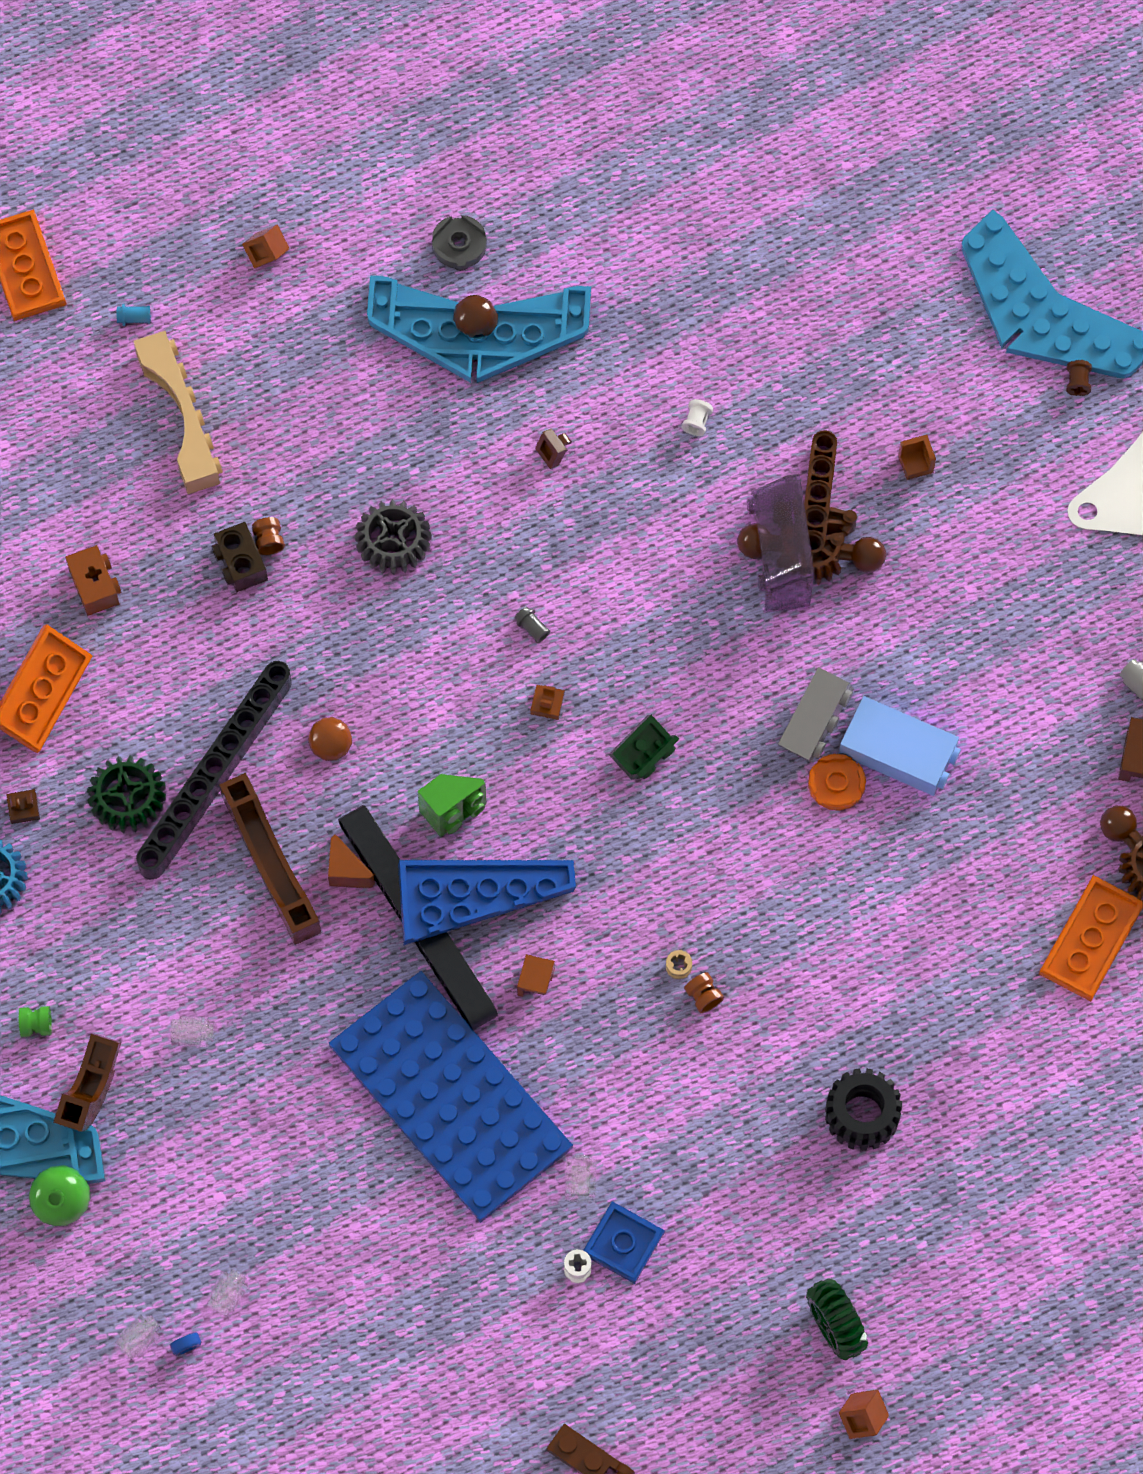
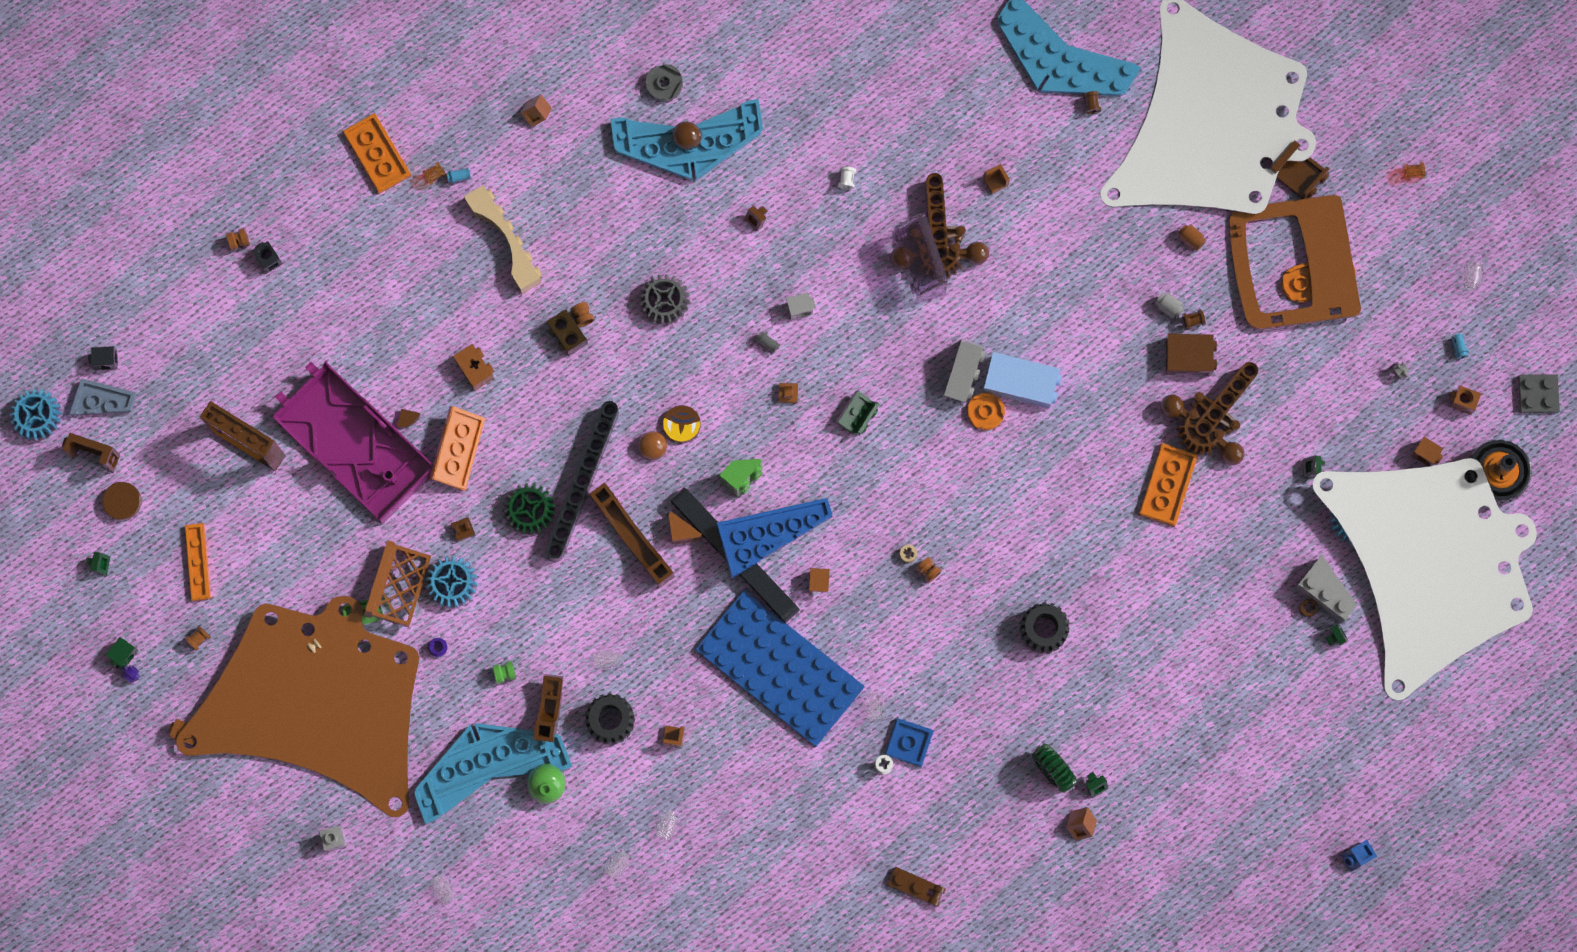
camera: 10 degrees left, 10 degrees up
(98, 305) = (431, 178): none -> clear orange bush
(183, 1141) = (605, 702): none -> black tyre
(185, 1344) = (647, 863): blue tile -> none
(268, 1164) = (673, 736): none -> dark orange panel
(380, 717) = (681, 424): none -> tile
(591, 581) = (800, 306): none -> light grey brick
(898, 1359) = (1096, 785): none -> dark green tile

